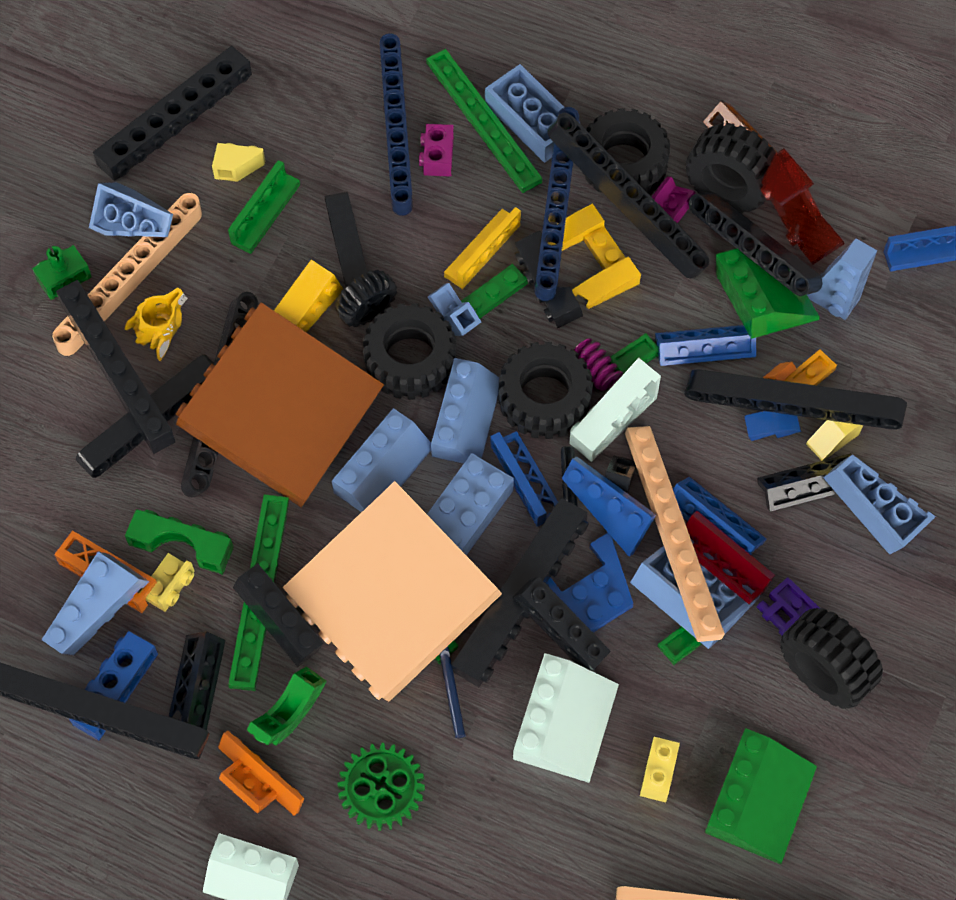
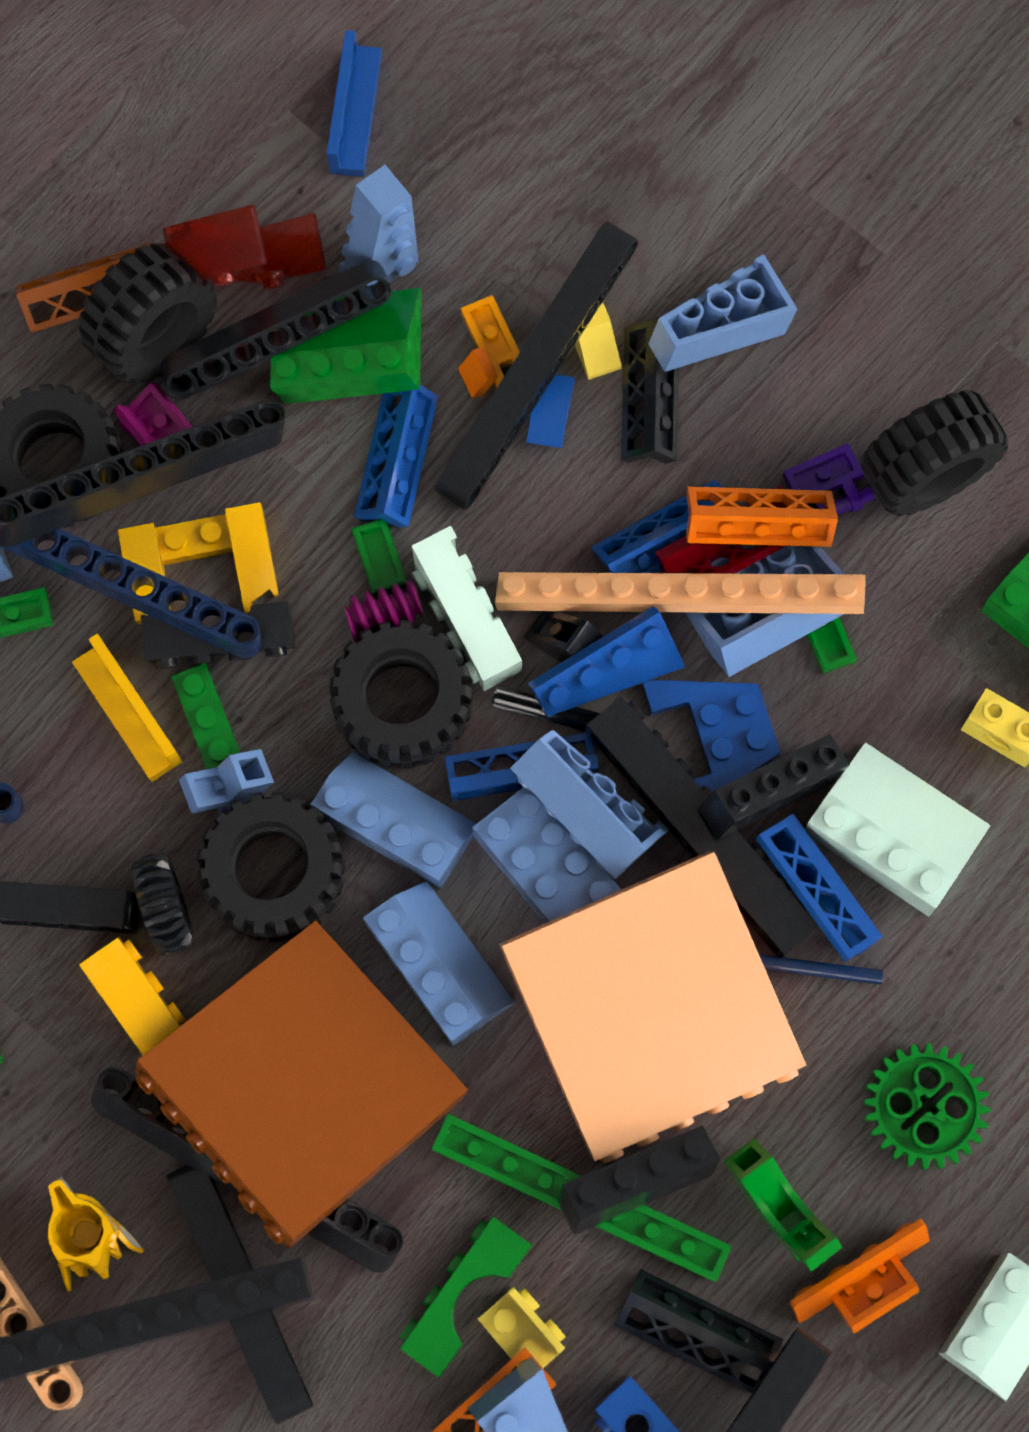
camera: 70 degrees left, 10 degrees up
(507, 513) = (586, 804): none -> medium blue wedge
(507, 683) = (824, 884): none -> blue fence
(740, 564) = (762, 521): none -> orange fence

